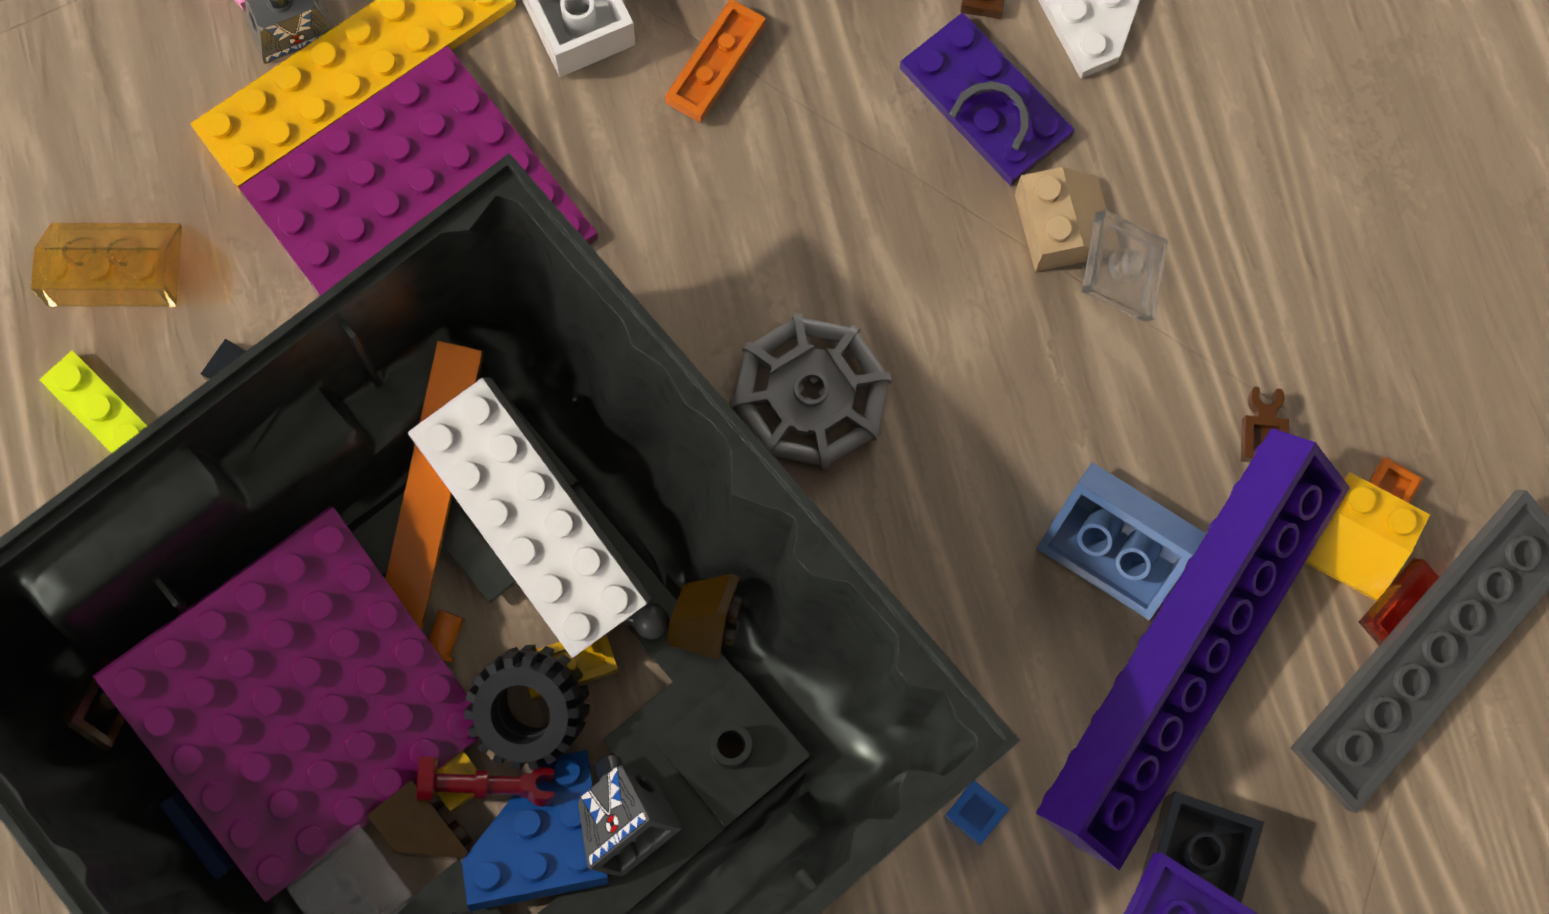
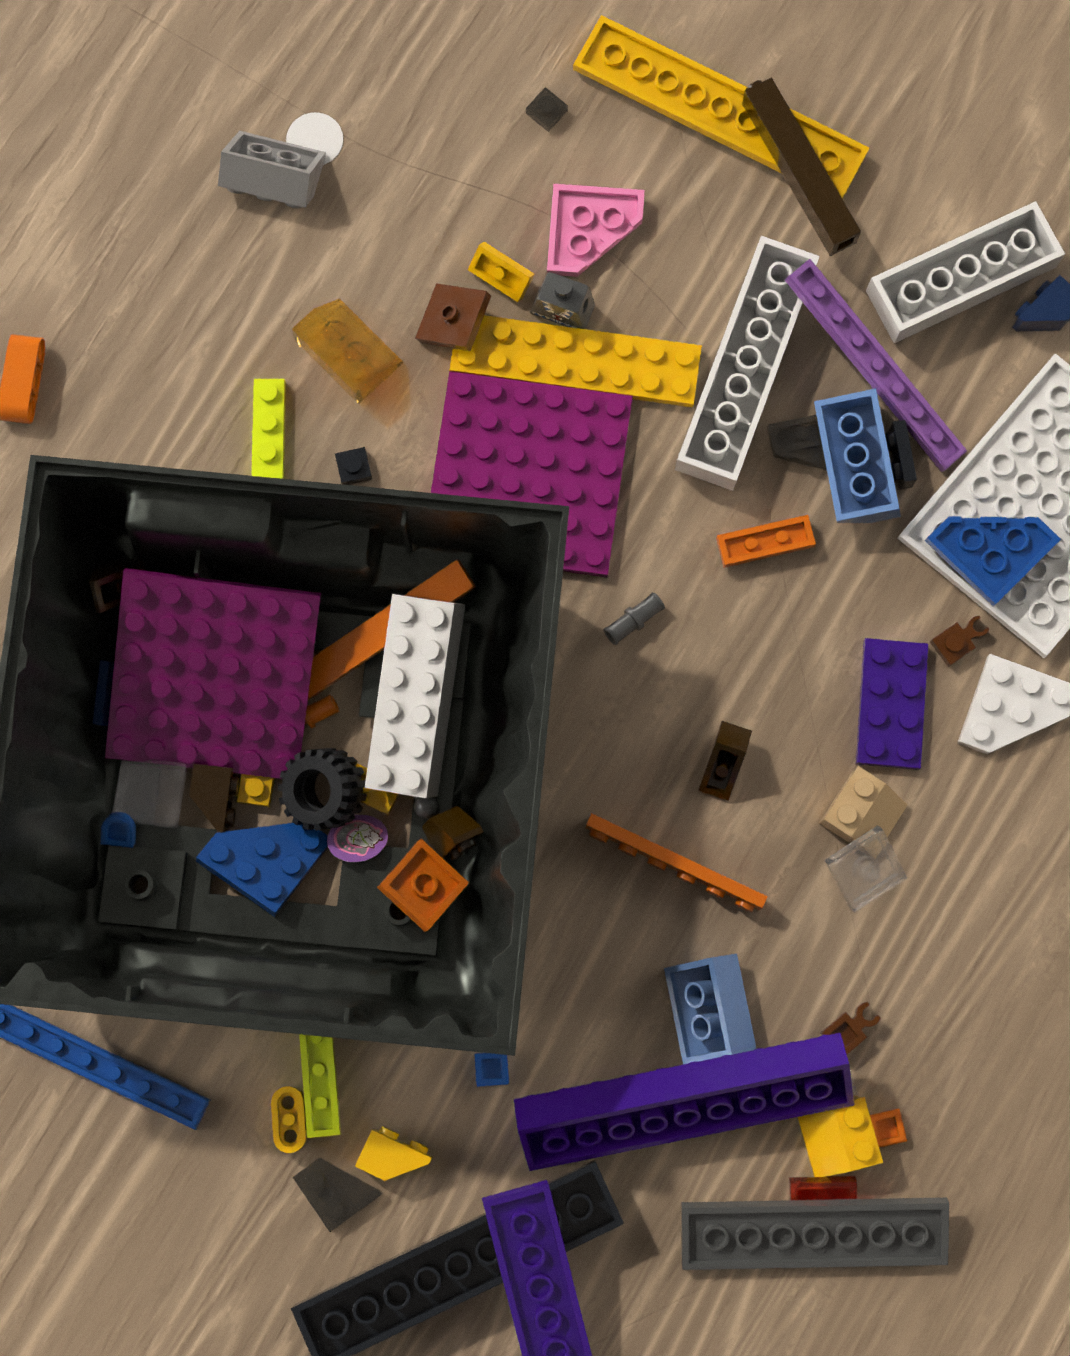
camera: 50 degrees right, 5 degrees up
(190, 131) = (453, 317): none -> reddish brown plate
(194, 47) = (501, 271): none -> yellow plate
(481, 783) = (261, 804): dark red piece -> none
(614, 722) = (358, 839): none -> sticker
(624, 817) = (312, 892): dark grey torso -> none
(665, 249) = (634, 618): none -> dark grey pin
(730, 695) = (423, 885): none -> orange plate
(805, 414) = (641, 785): light grey plate -> none
(891, 295) = (725, 760): none -> dark brown slope
(928, 443) = (687, 869): none -> orange plate
(1002, 88) = (902, 717): dark grey helmet -> none

